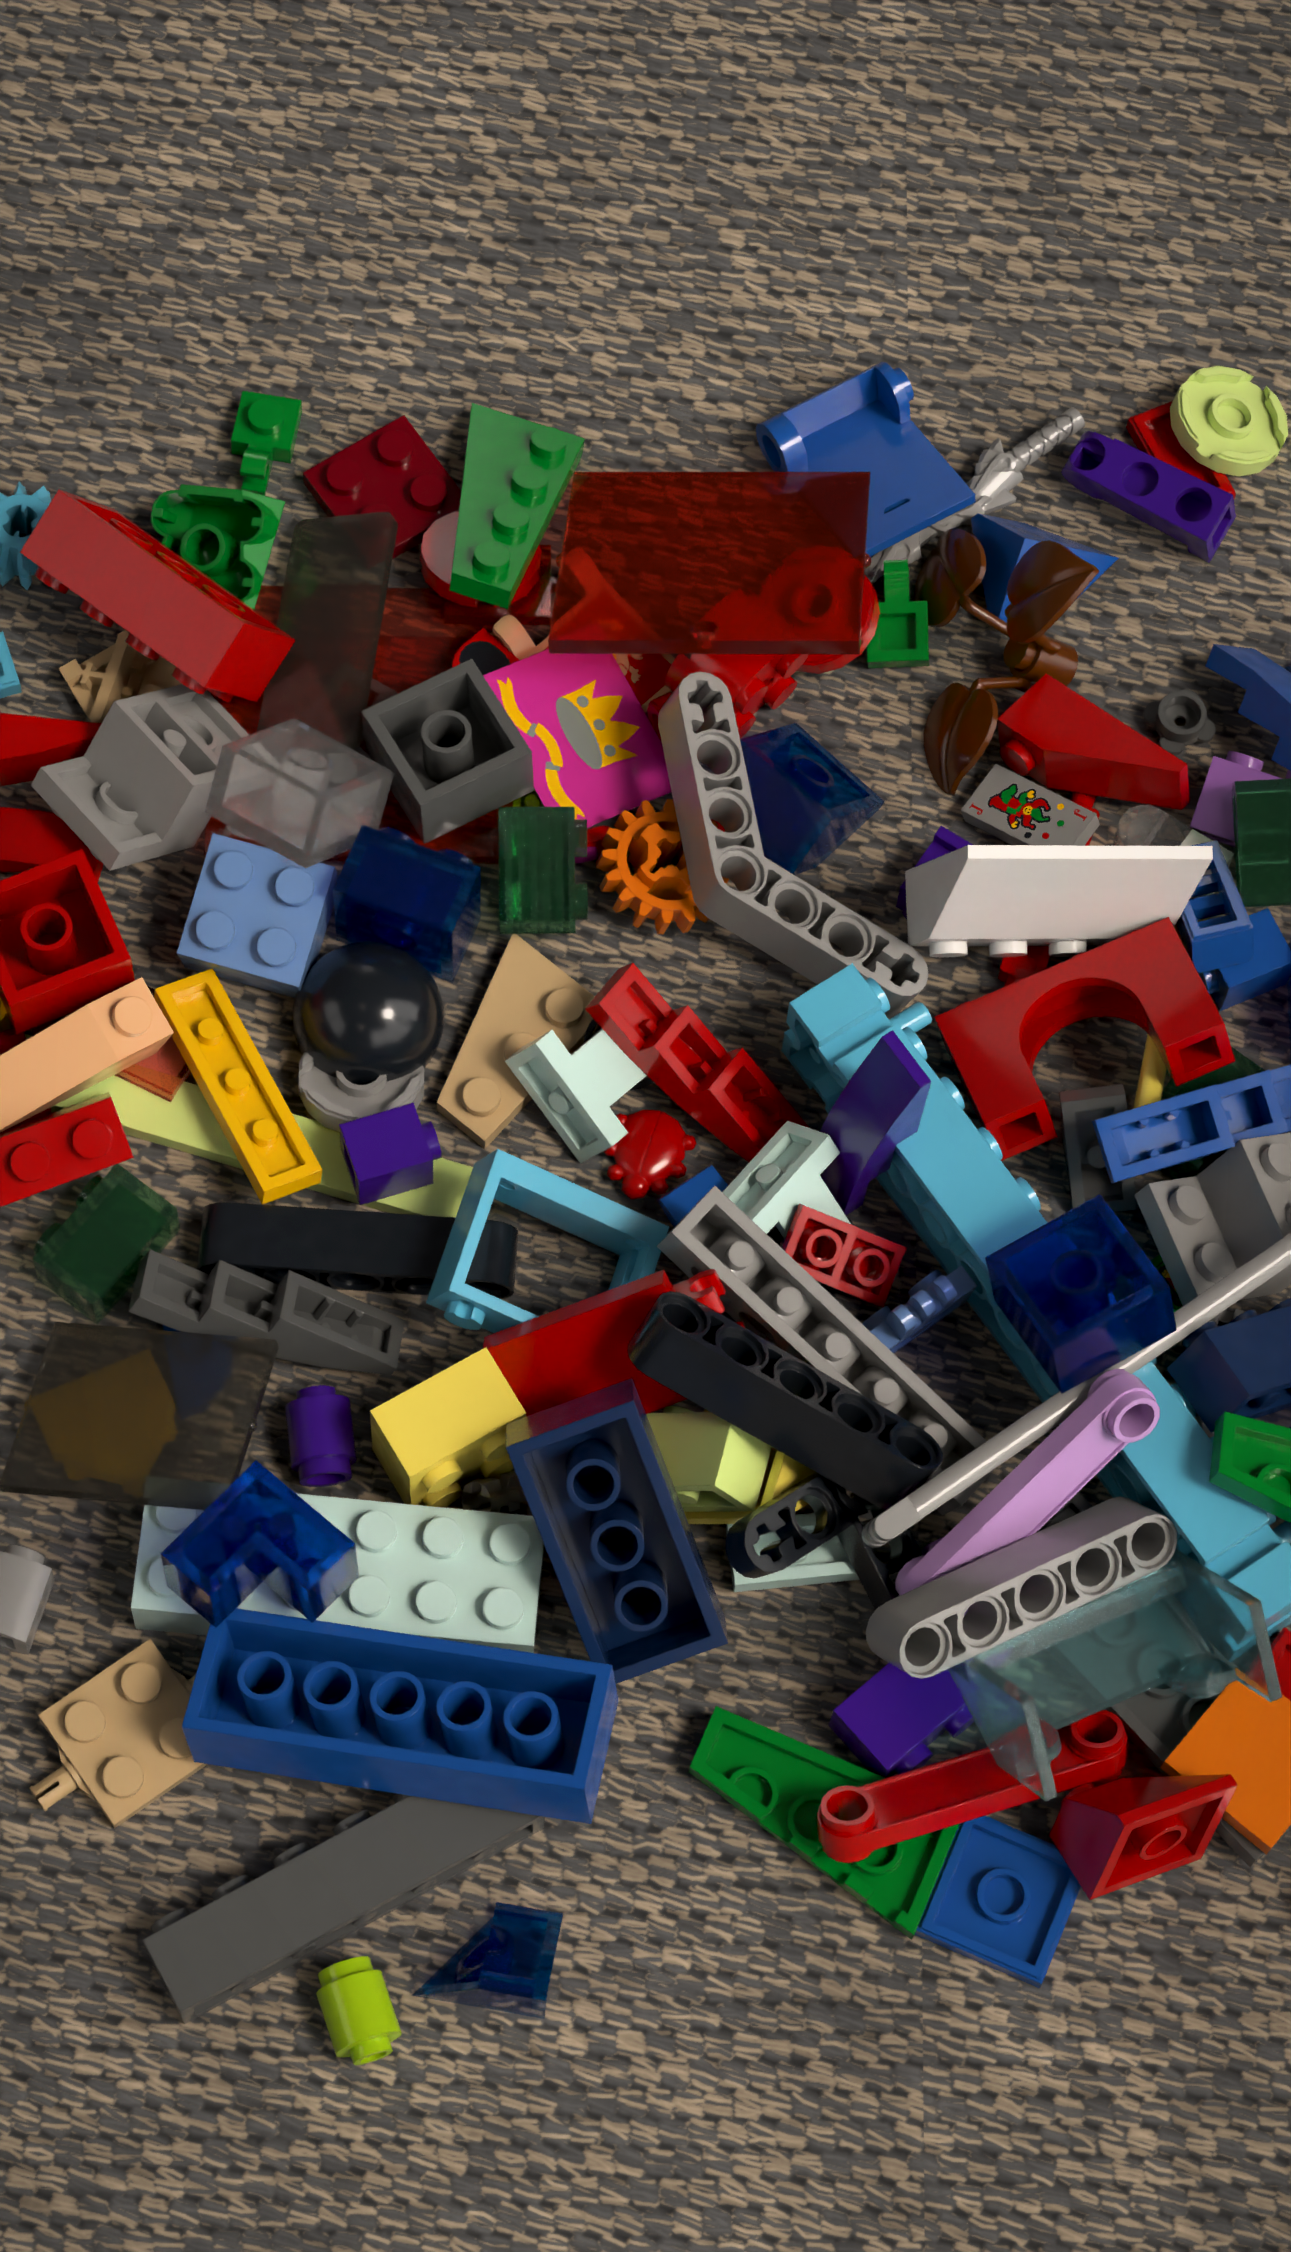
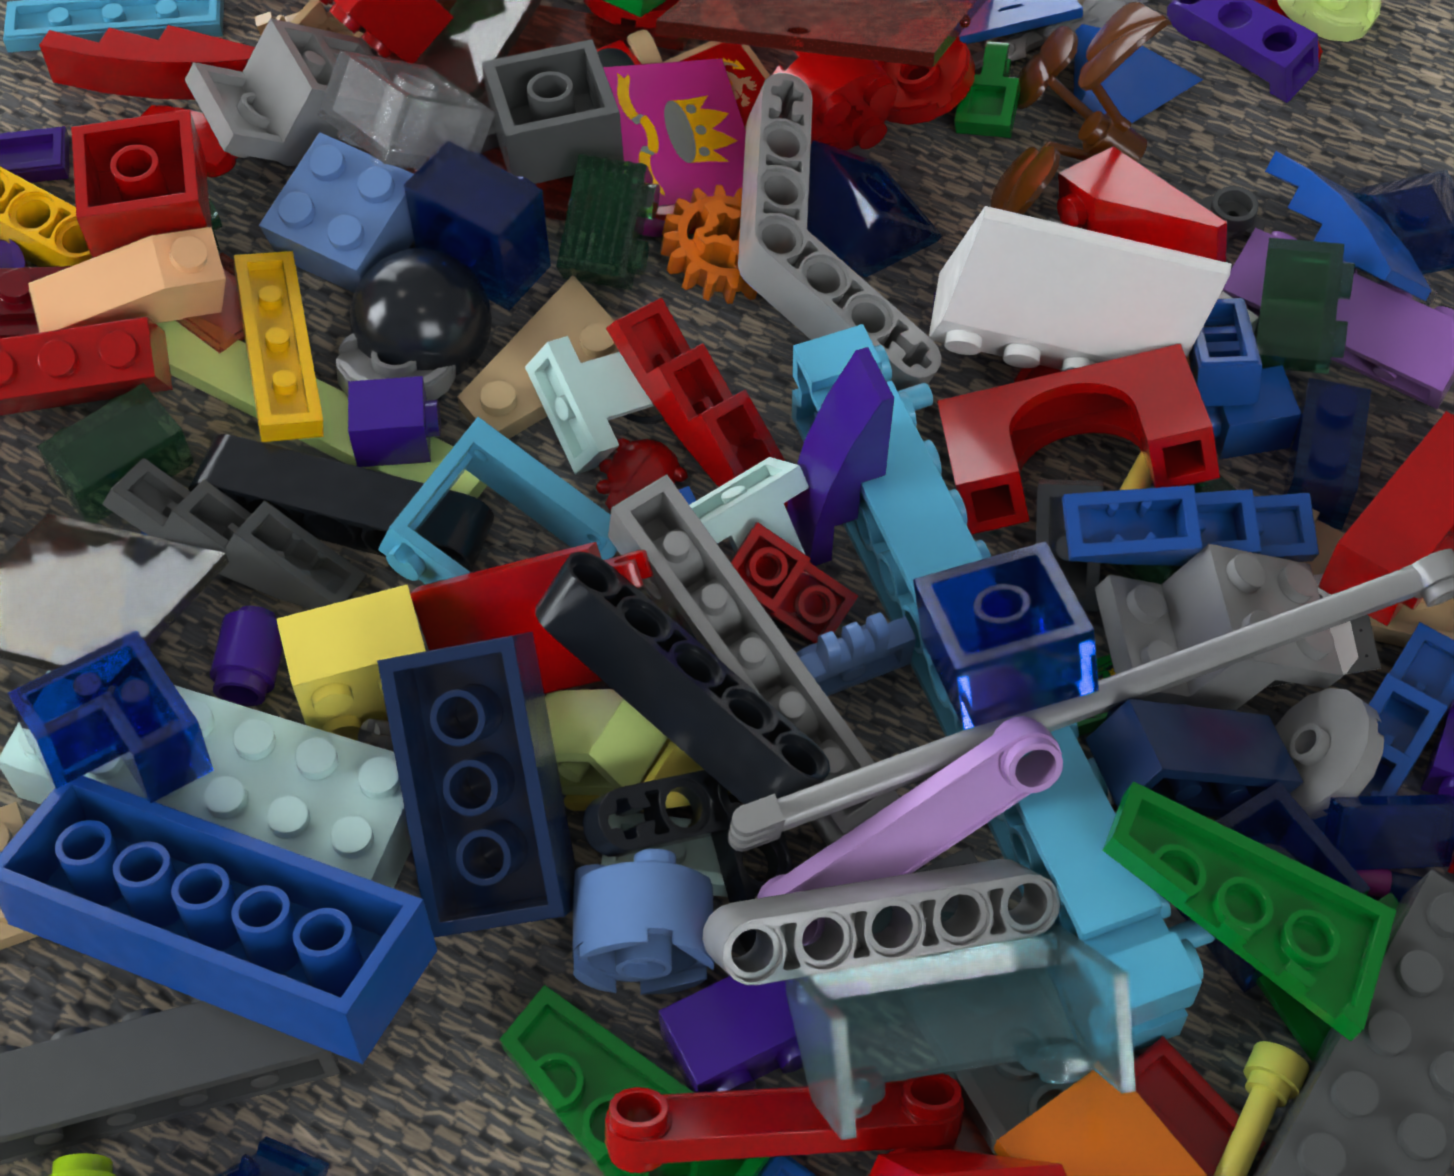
camera: 20 degrees right, 10 degrees down
(795, 1630) = (641, 924): none -> medium blue brick

